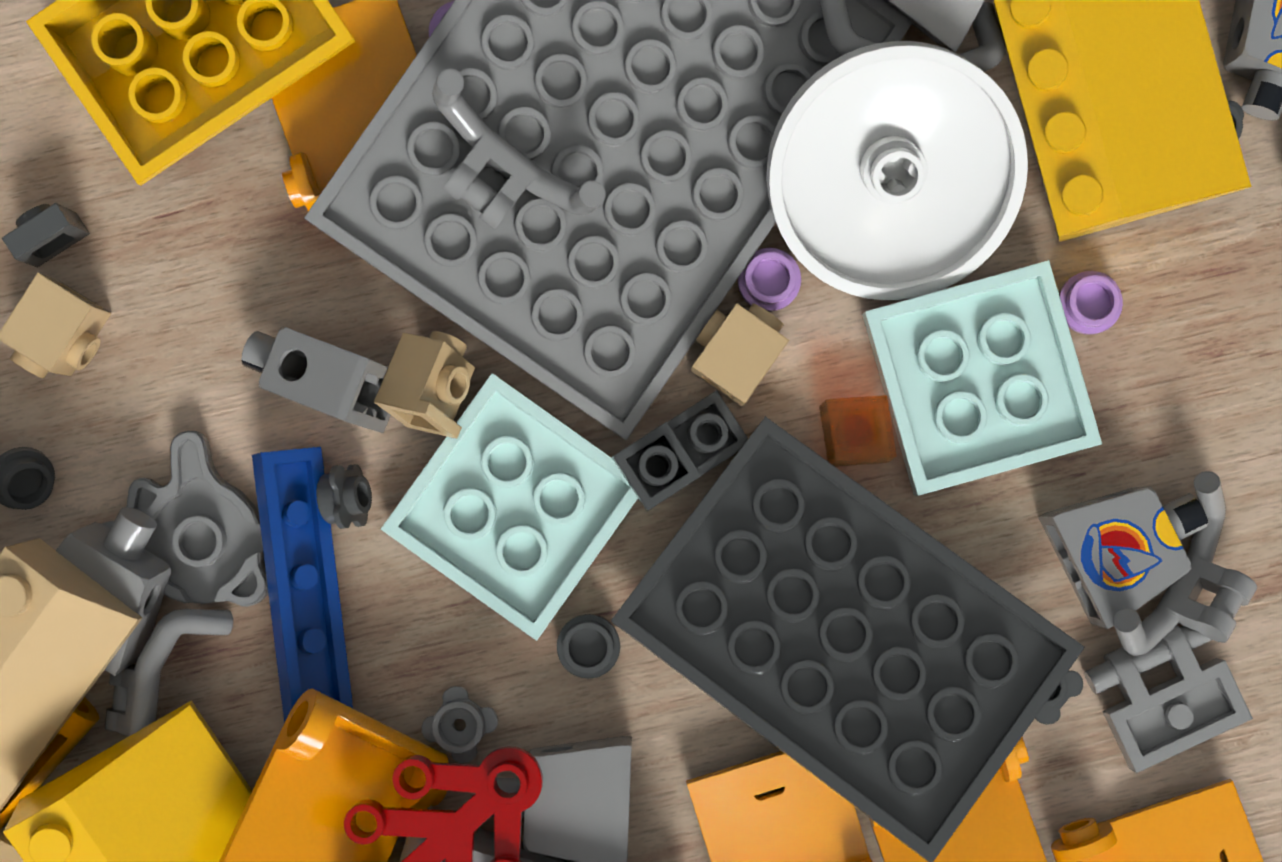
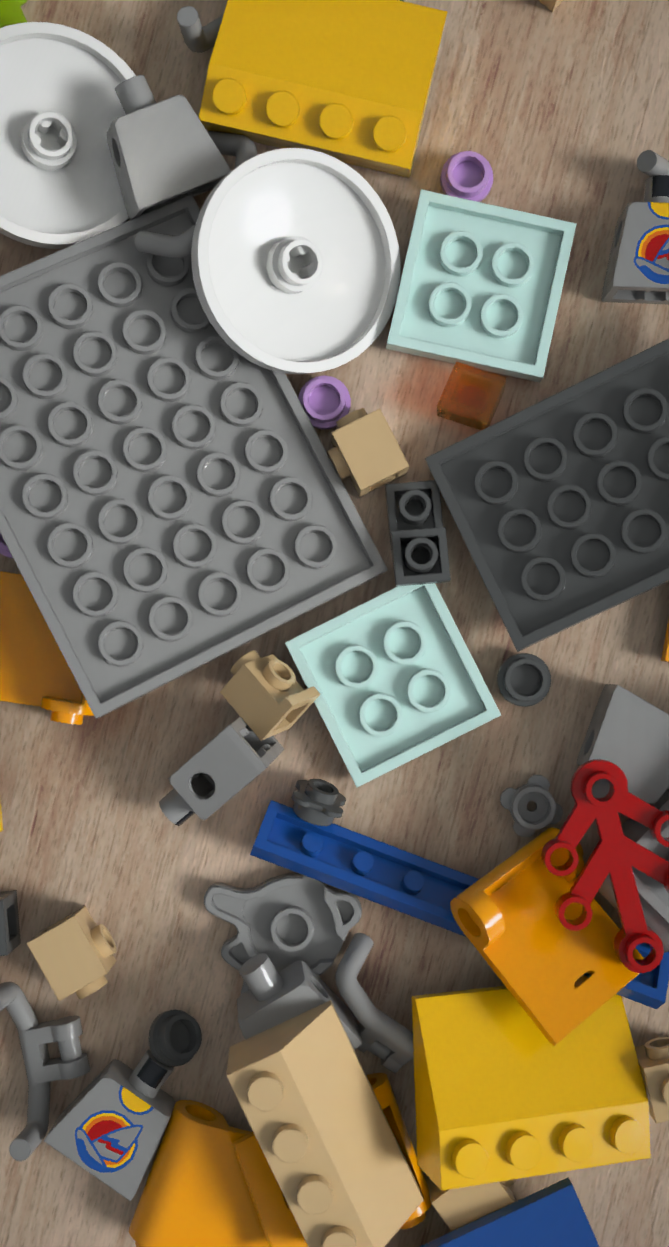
camera: 70 degrees left, 0 degrees up
(505, 159) = (133, 544): light grey piece -> none

